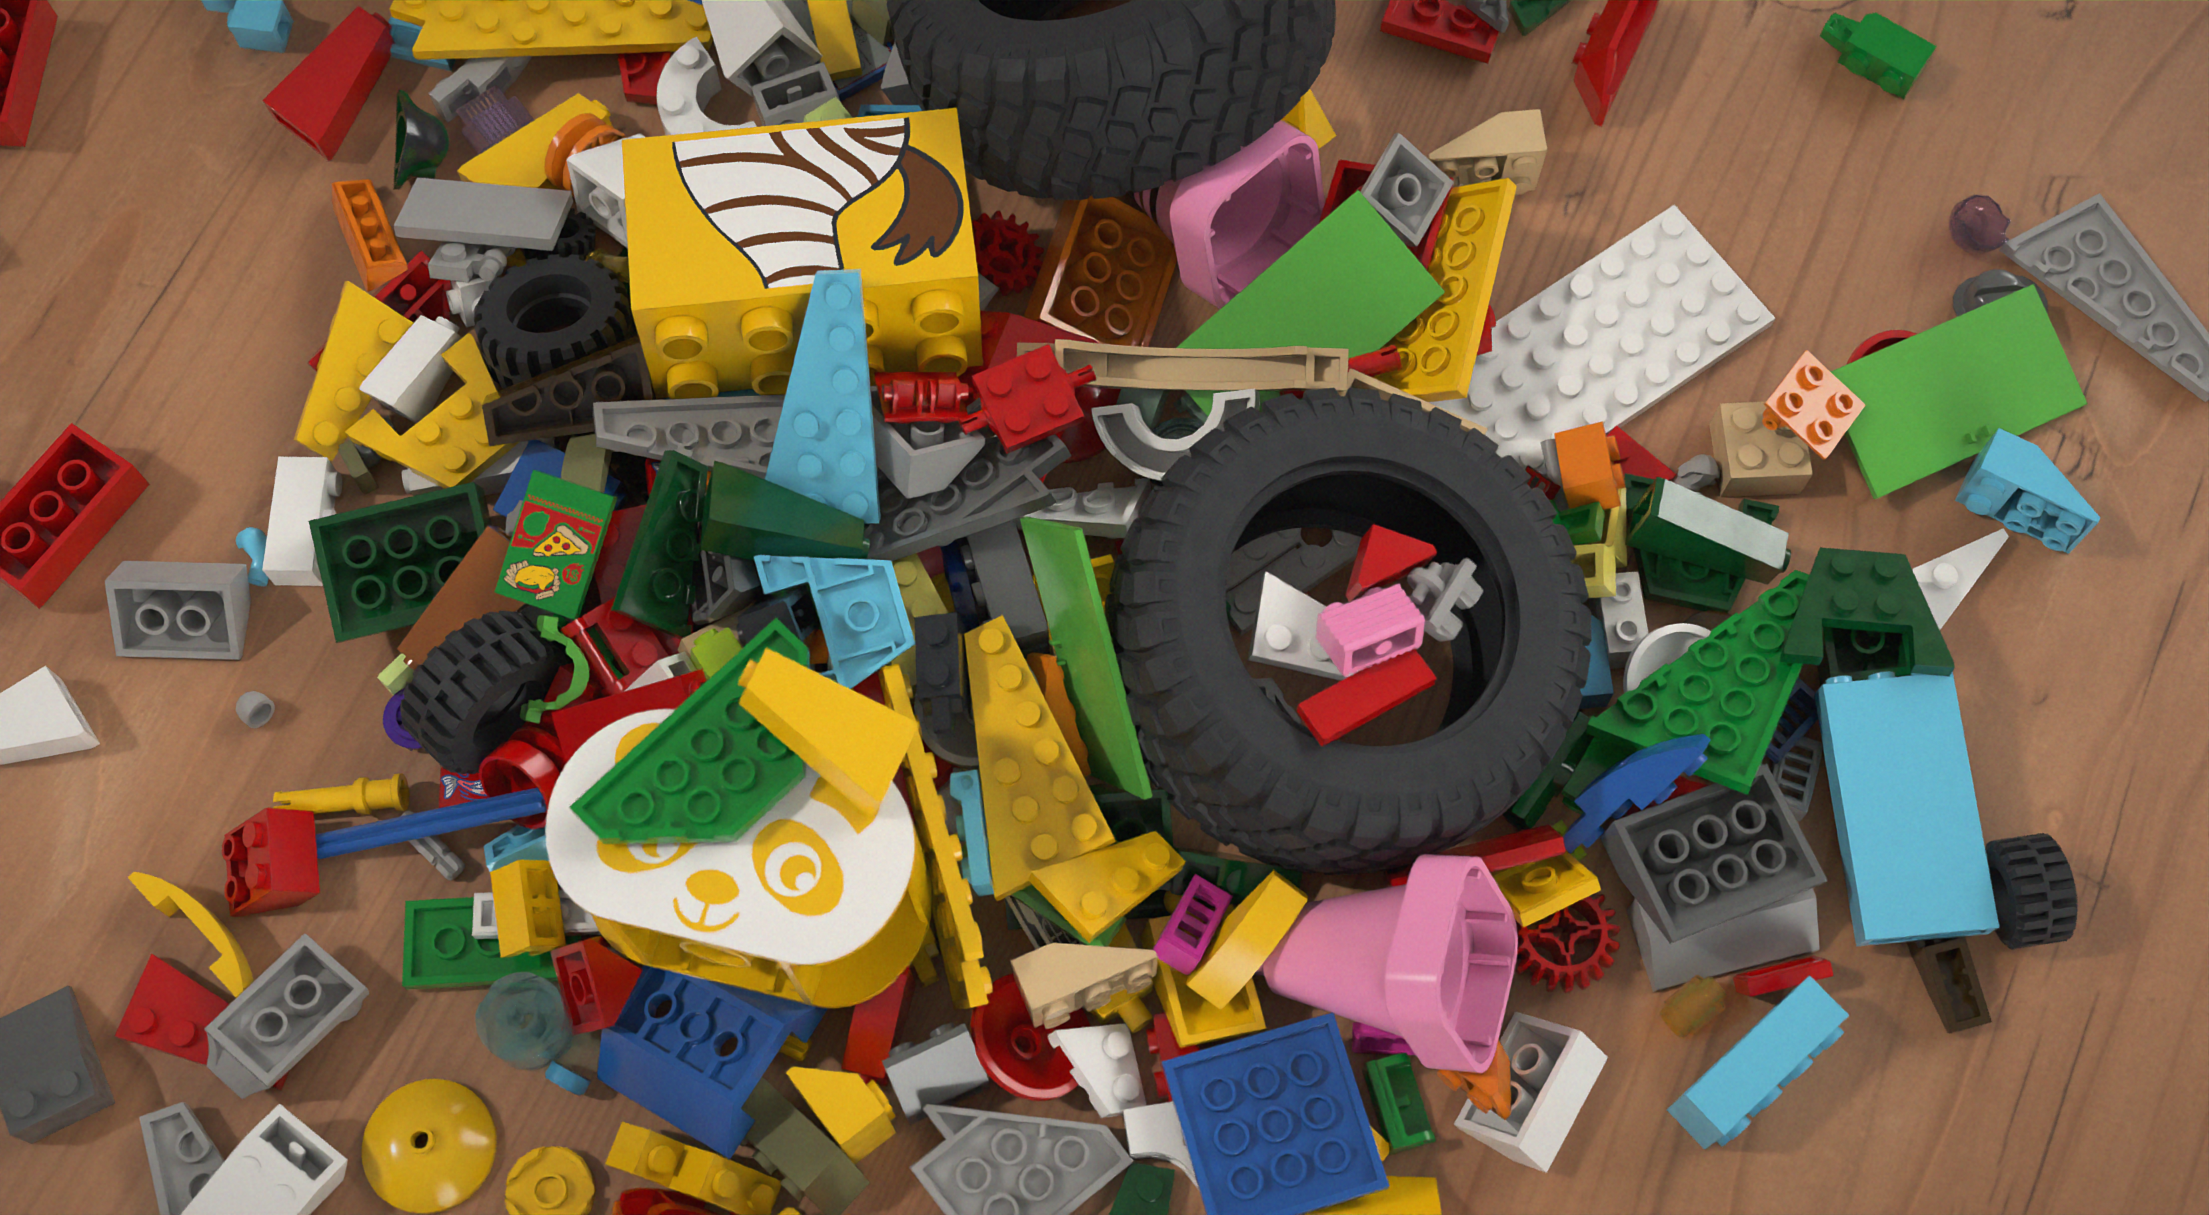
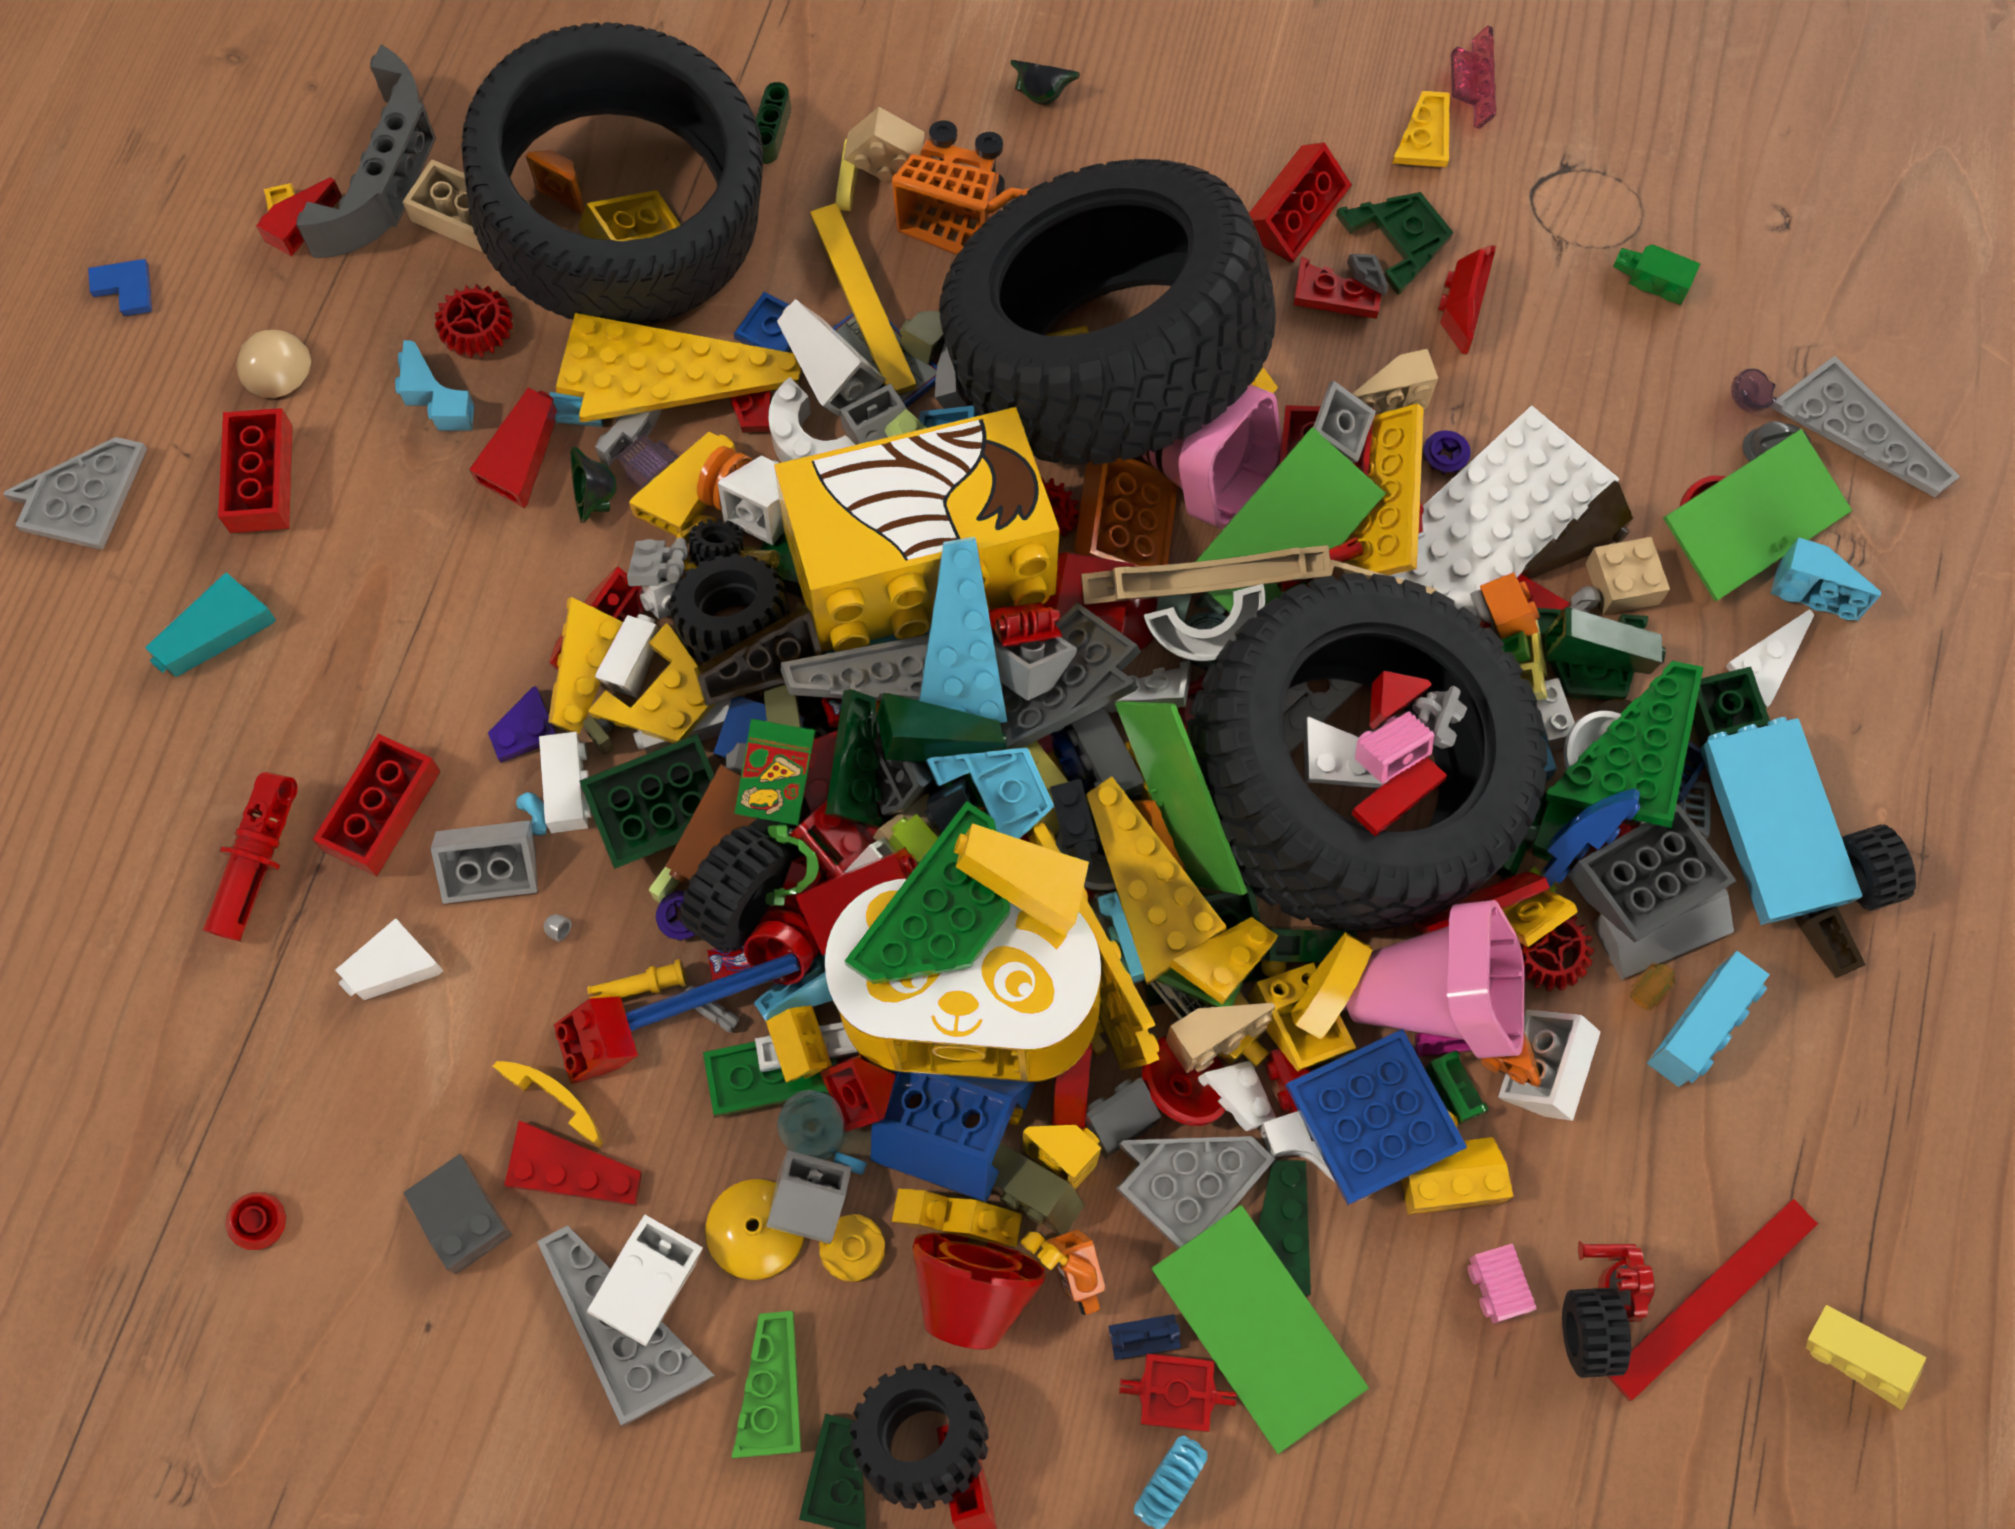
camera: 10 degrees left, 0 degrees up
(257, 444) = (521, 727): none -> dark purple wing
(281, 1017) = (630, 1152): light grey slope -> none
(367, 232) = (570, 558): orange slope -> none
(483, 214) = (659, 532): light grey tile -> none
(499, 1114) = (808, 1196): none -> light grey slope
(1027, 398) = (1102, 614): red plate -> none
(1178, 947) = (1287, 1000): dark pink slope -> none
(1558, 239) = (1451, 442): none -> dark purple gear
(1737, 373) = (1598, 526): none -> dark brown wedge
(1782, 975) = (1712, 954): red tile -> none
(1812, 405) = (1663, 539): hinge -> none
(1866, 594) = (1725, 671): dark green wing -> none

